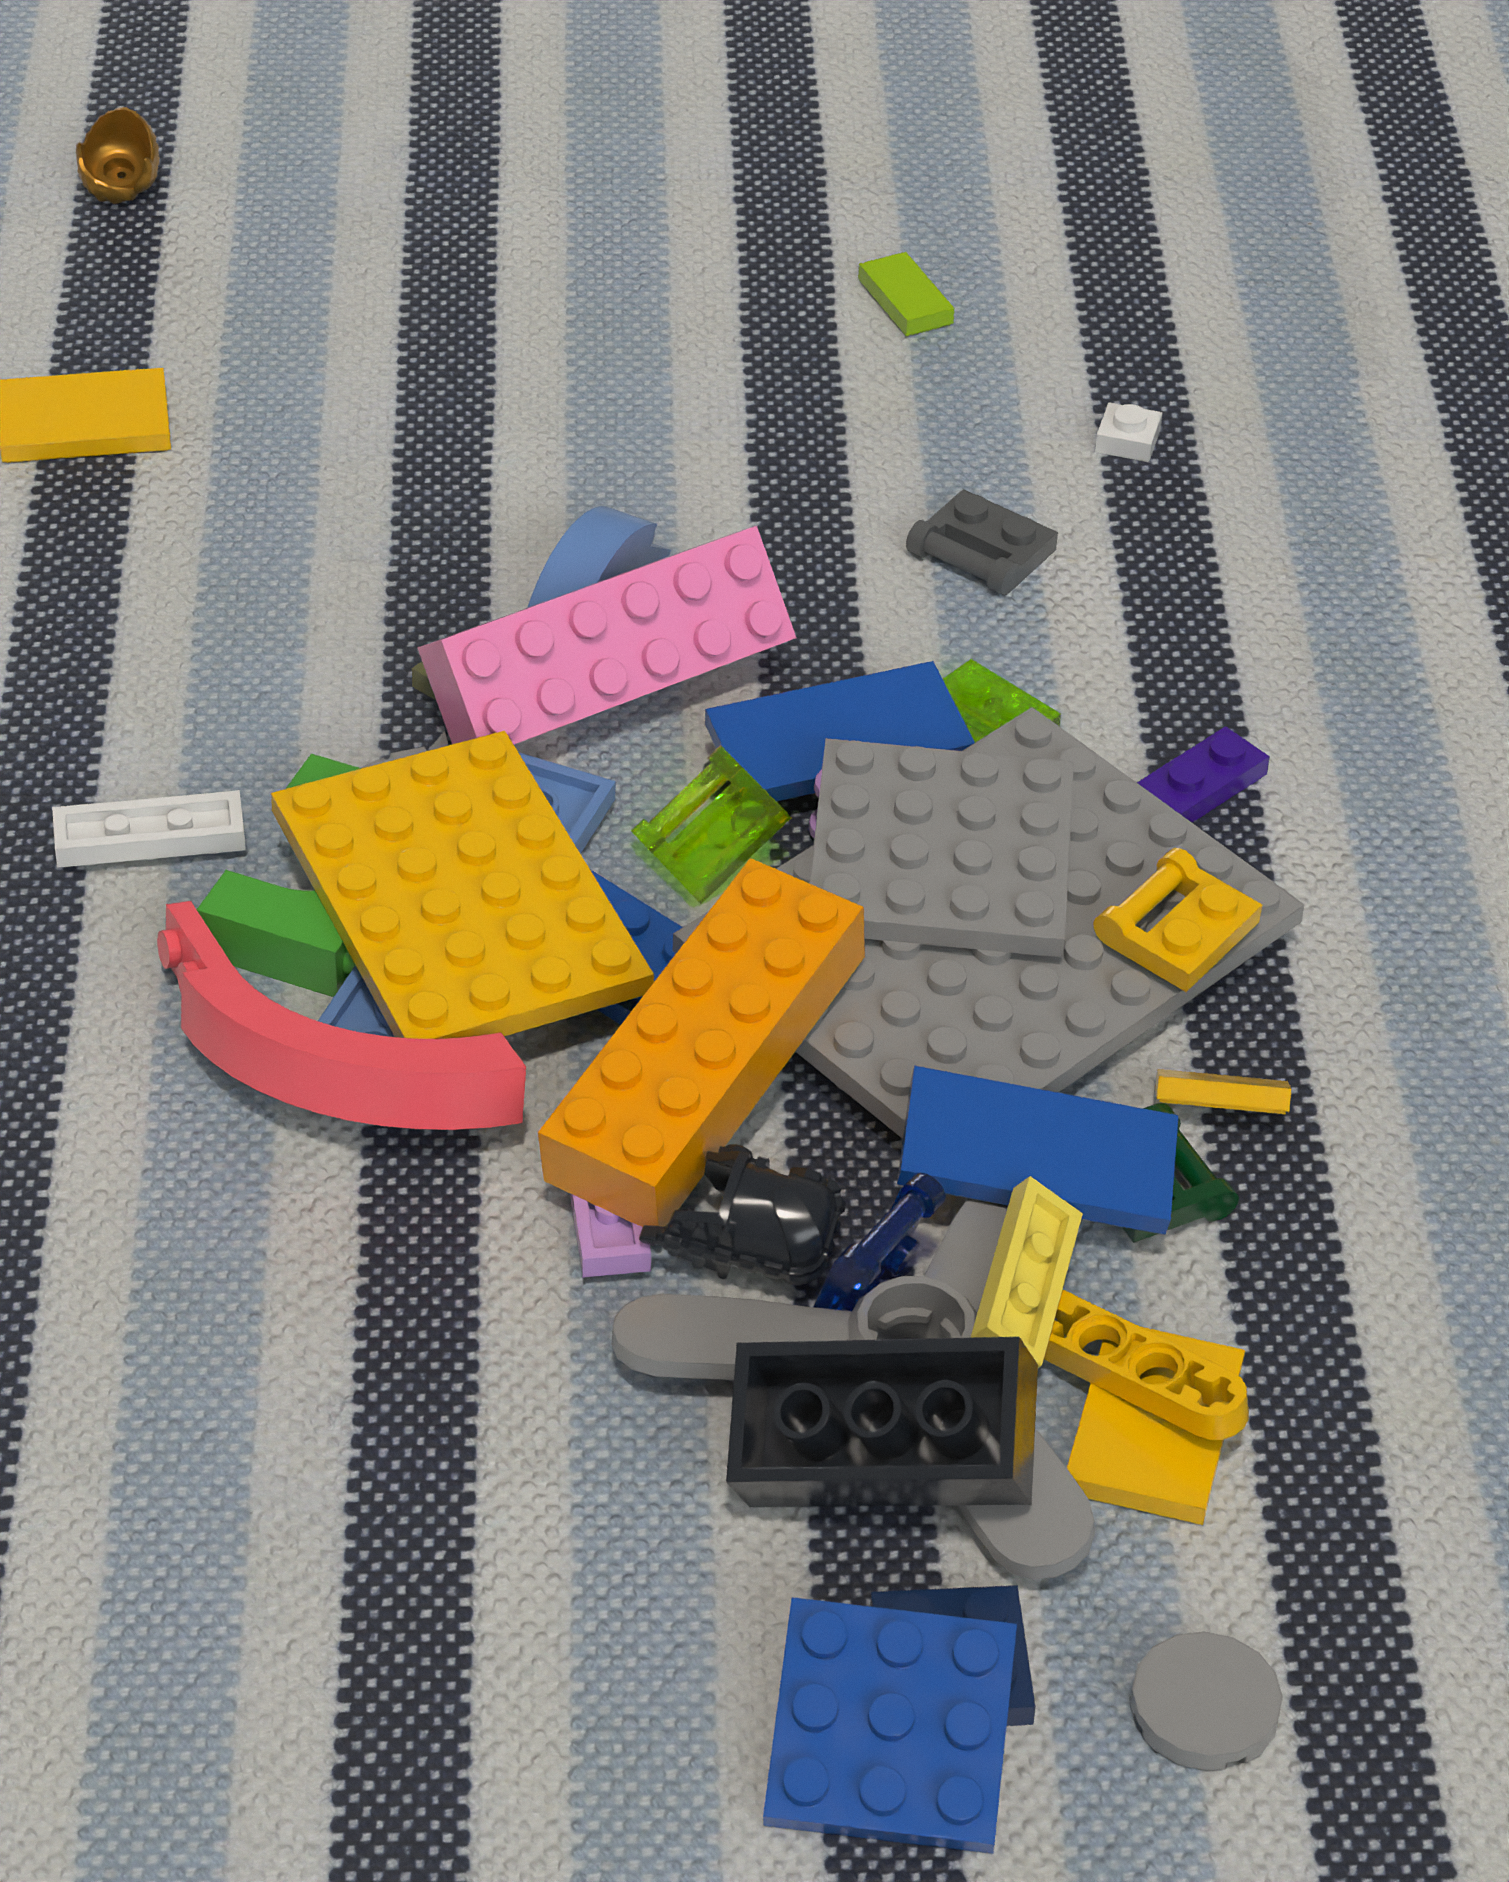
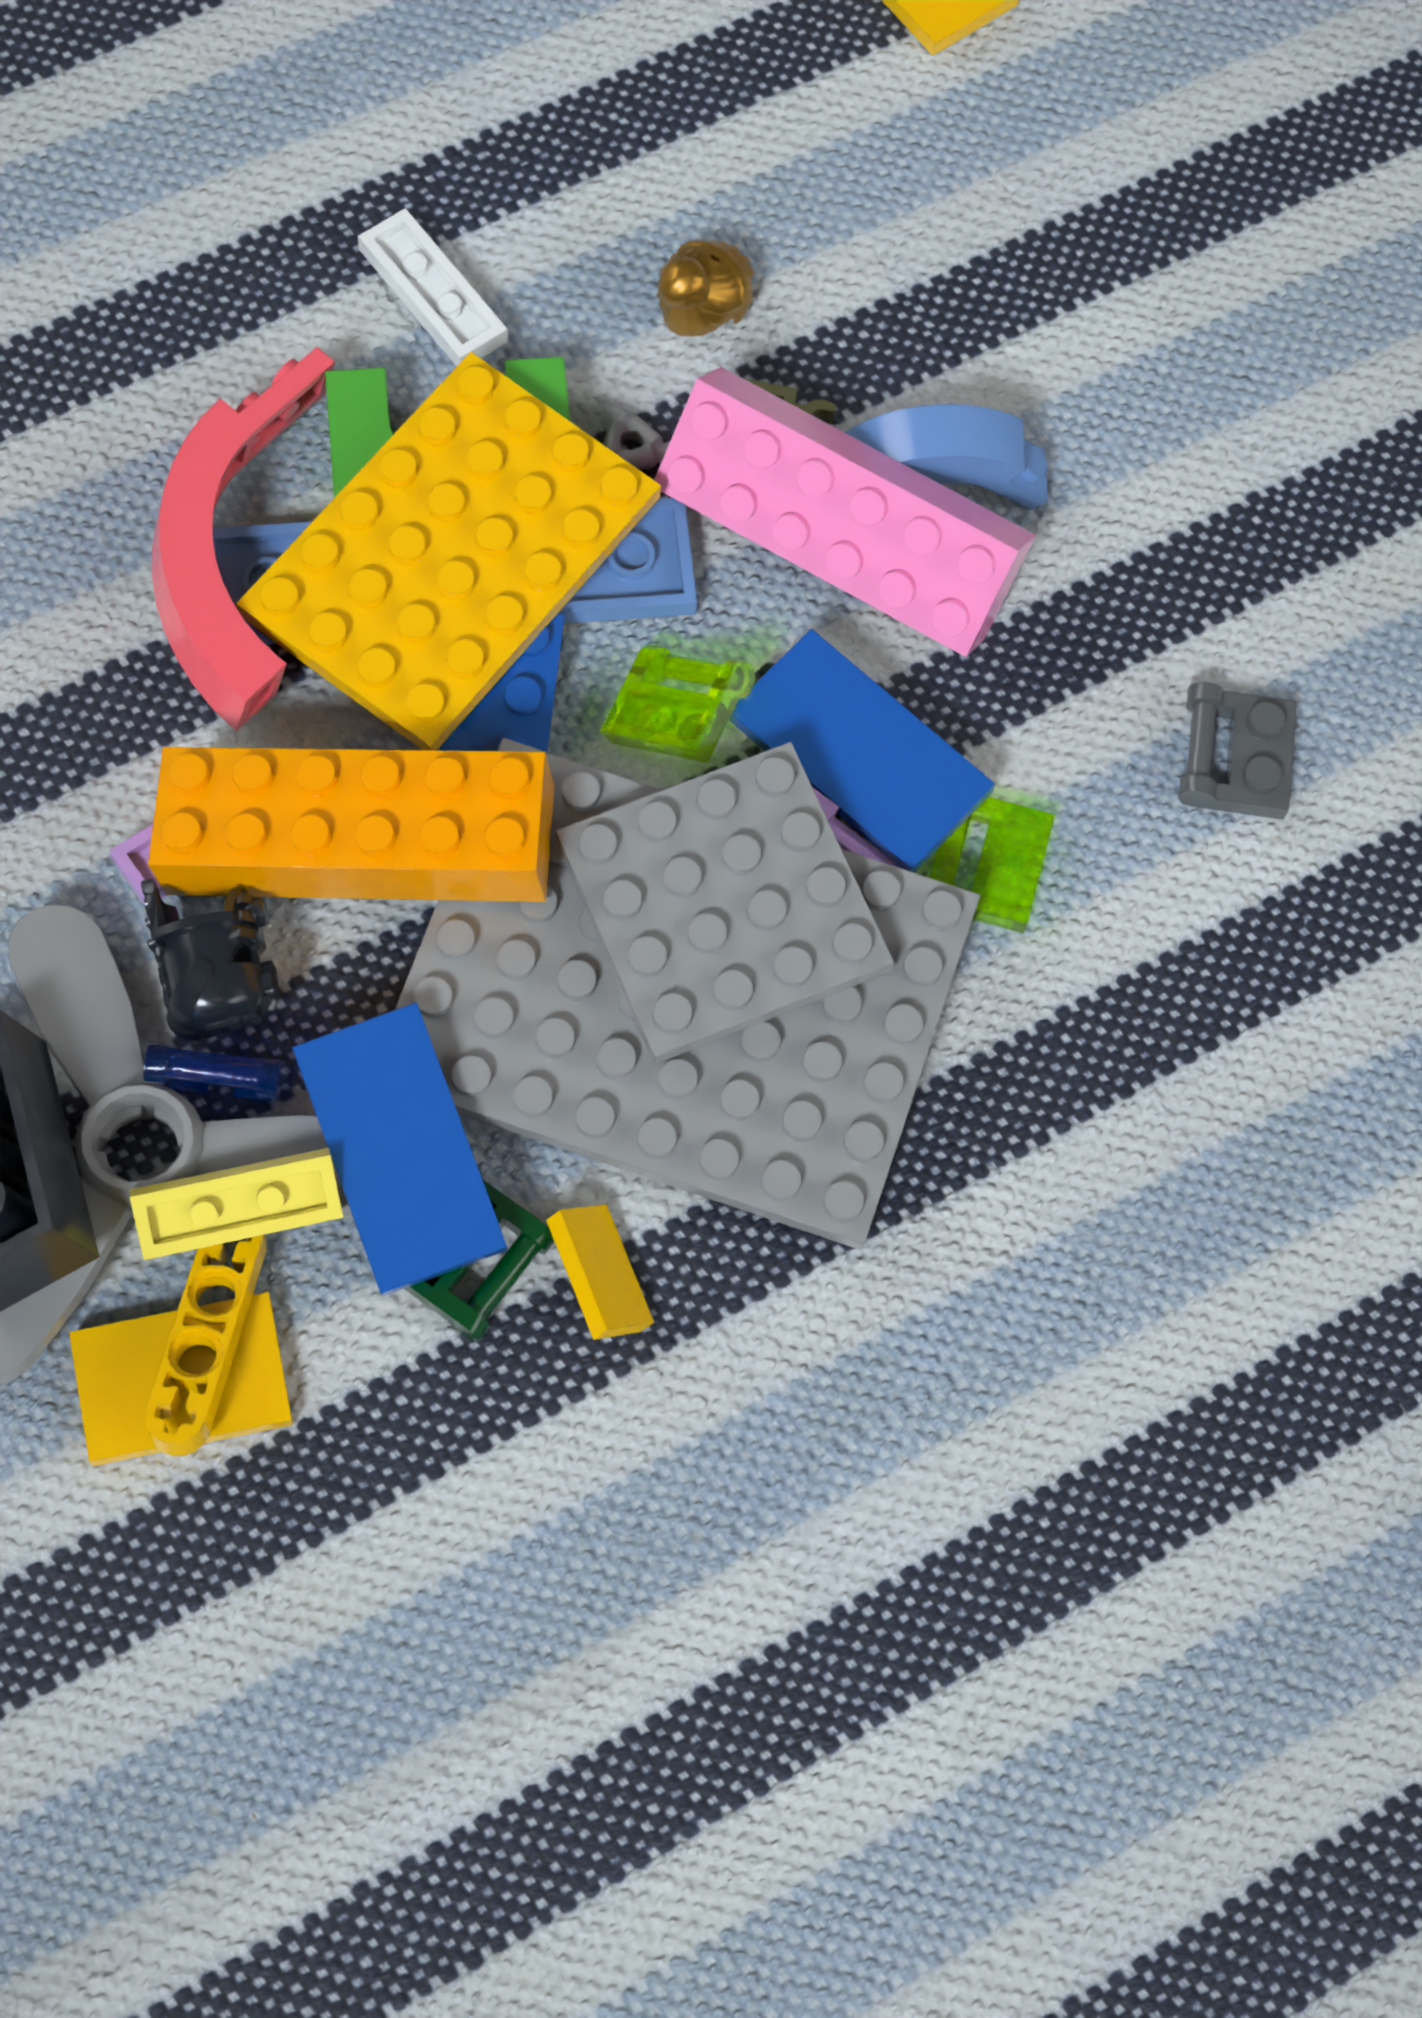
camera: 55 degrees right, 25 degrees up
(298, 659) = (704, 287): none -> pearl gold piece
(1192, 933) = (744, 1162): yellow plate -> none
(1207, 774) = (1010, 1078): dark purple plate -> none

